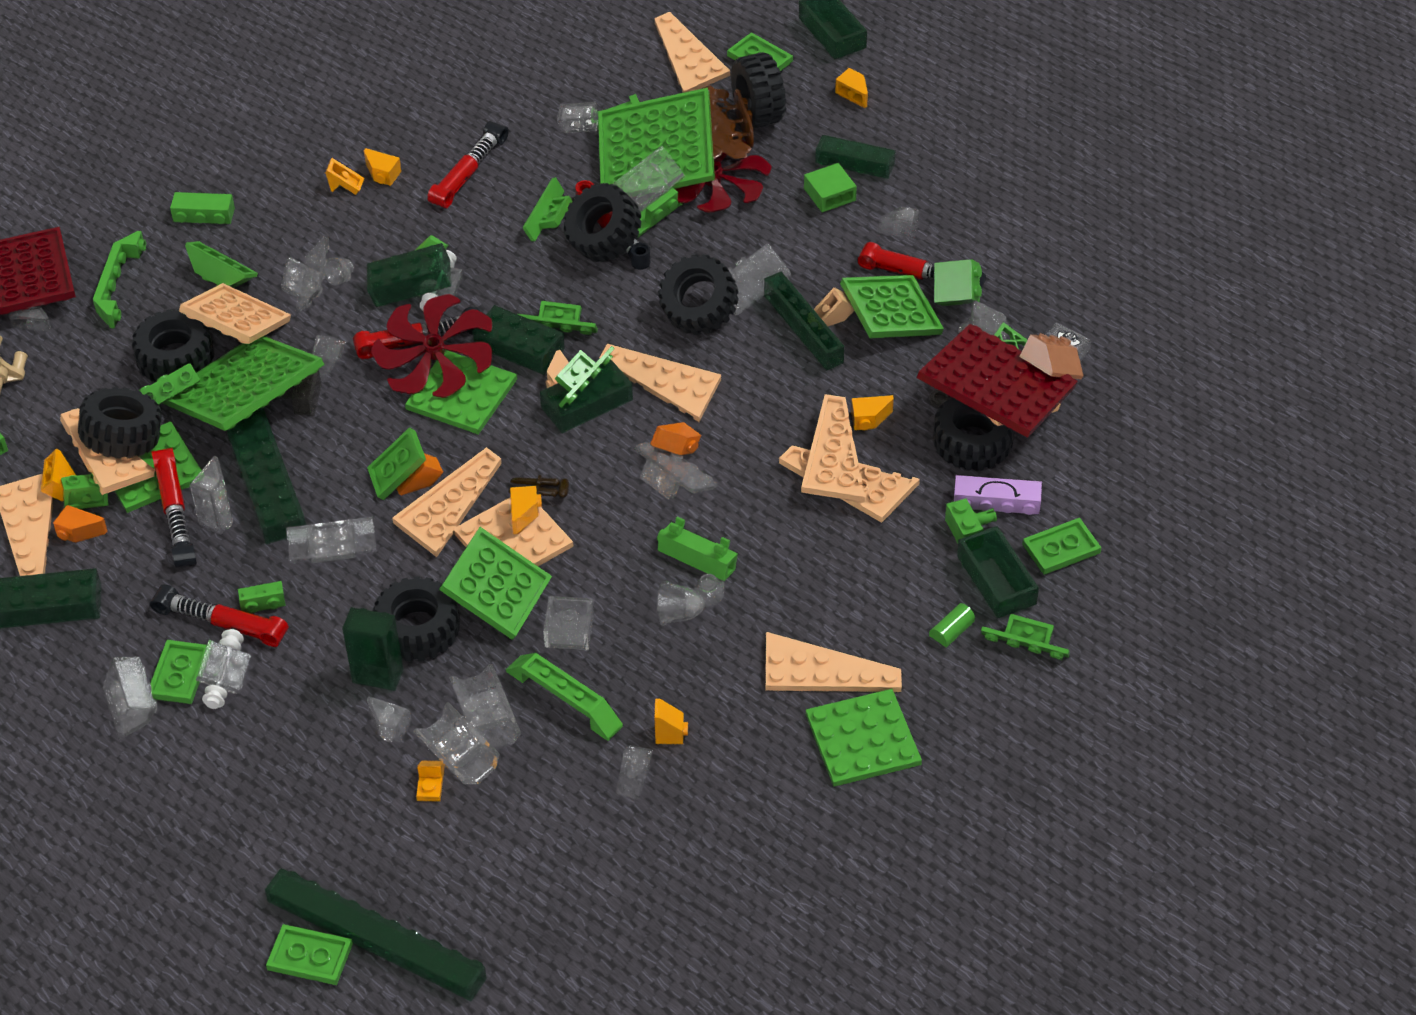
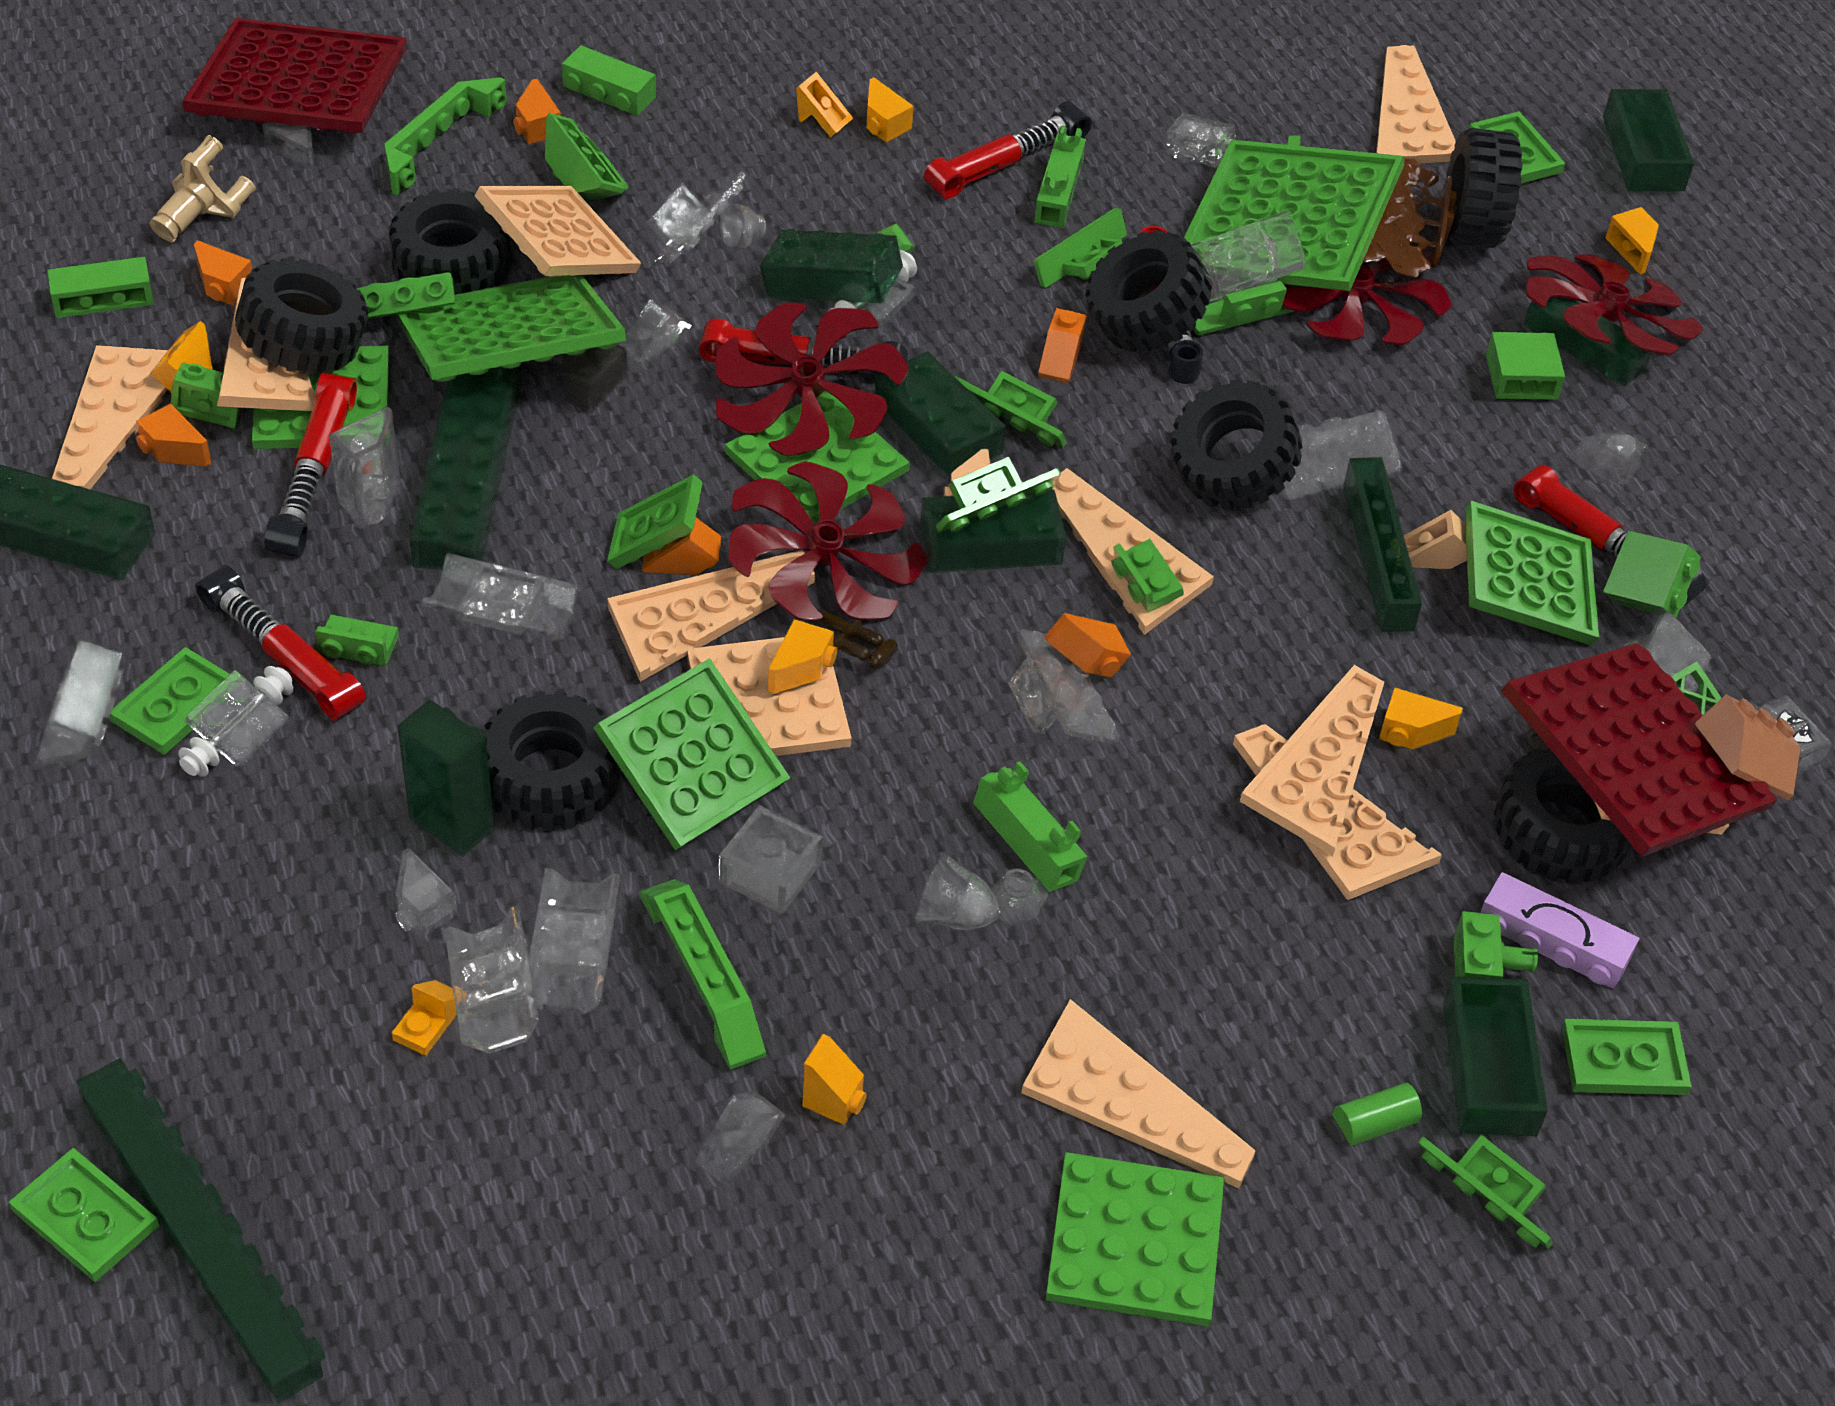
camera: 20 degrees right, 0 degrees up
(40, 415) = (221, 272): none -> orange slope
(171, 245) = (532, 112): none -> orange slope
(495, 438) = (822, 543): none -> dark red piece
(509, 171) = (1060, 179): none -> bright green brick
(566, 272) = (1062, 345): none -> orange slope
(686, 387) = (1147, 575): none -> bright green bracket
(857, 132) = (1607, 301): none -> dark red piece

